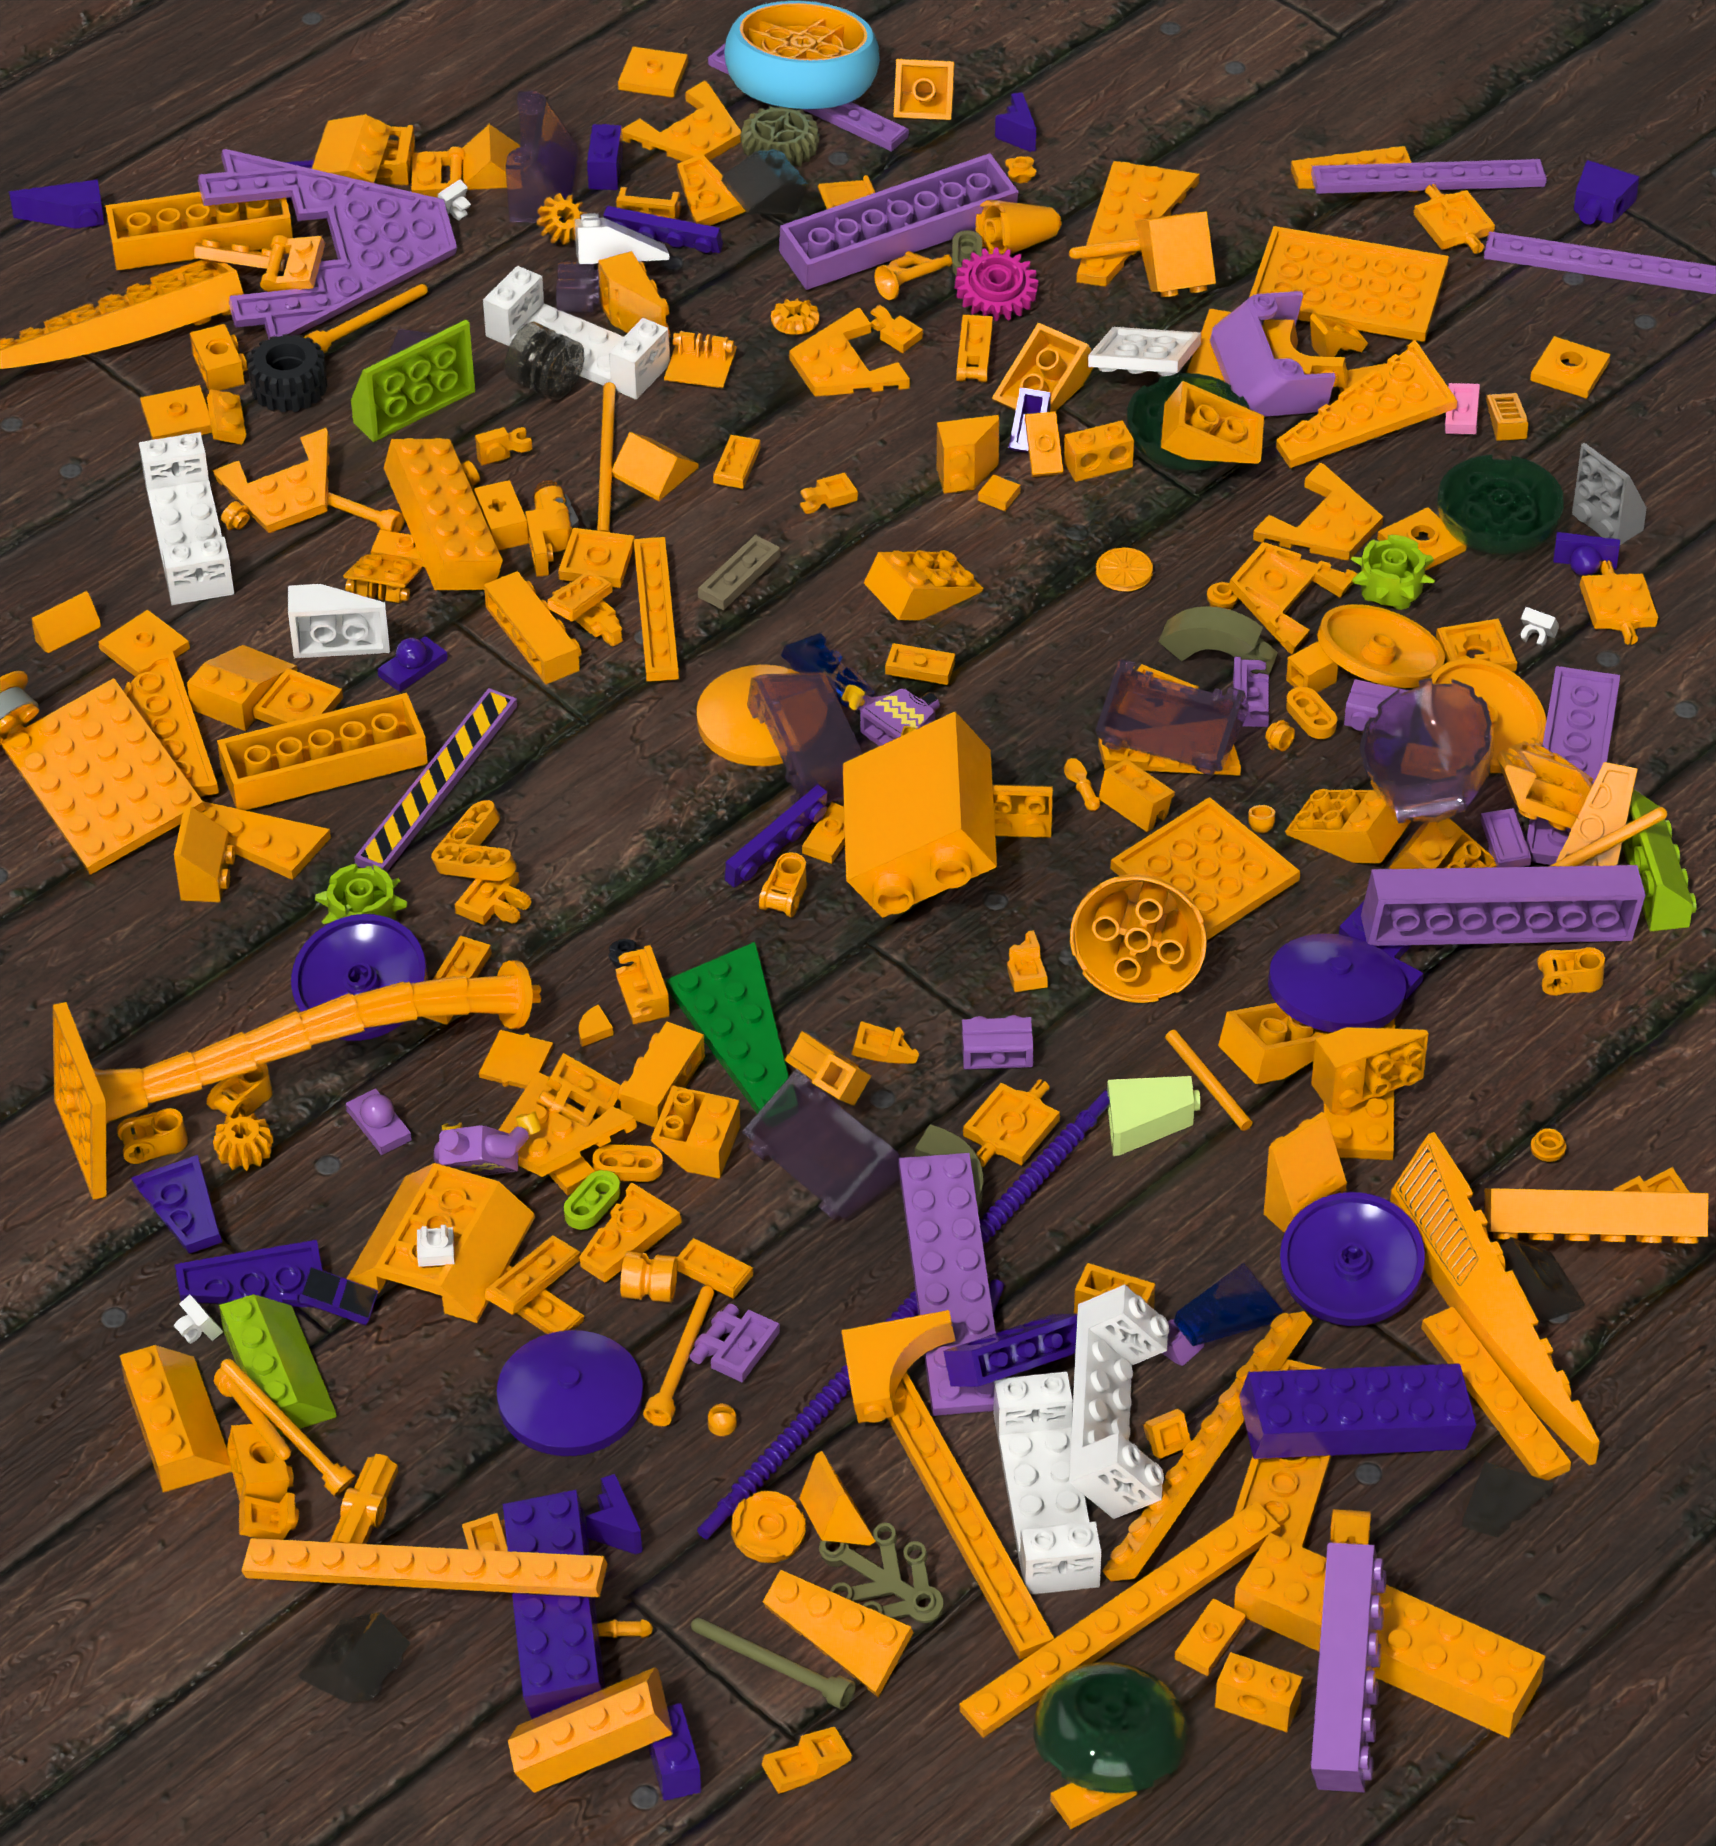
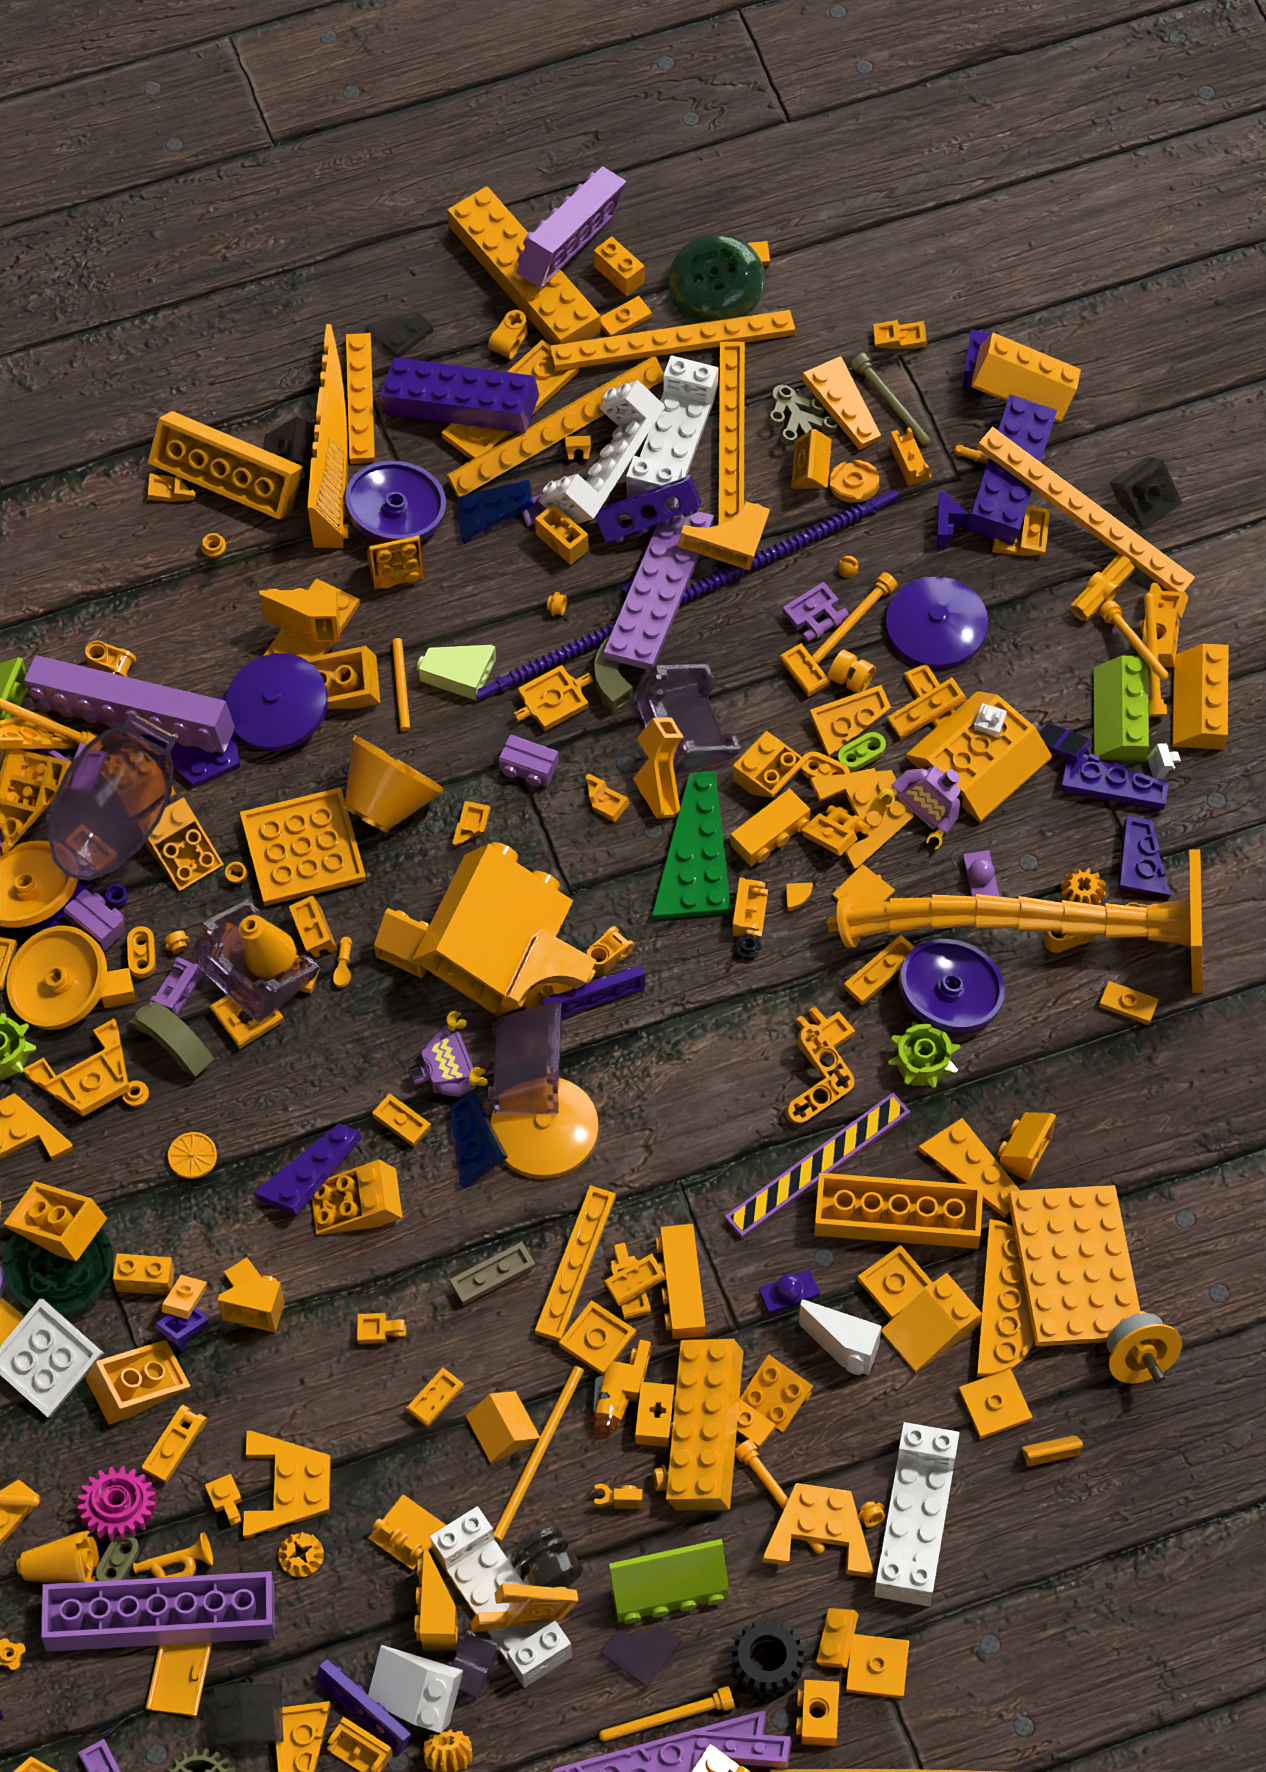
camera: 155 degrees left, 15 degrees up
(138, 1051) = (1128, 1002): none -> light orange plate
(529, 298) = (528, 1606): none -> light orange wing
(706, 1584) = (909, 458): none -> light orange hinge
(832, 795) = (548, 961): none -> light orange arch
(989, 585) = (306, 1174): none -> dark purple wing
(1073, 1231) = (557, 604): none -> light orange plate
(1167, 717) = (265, 947): none -> light orange cone

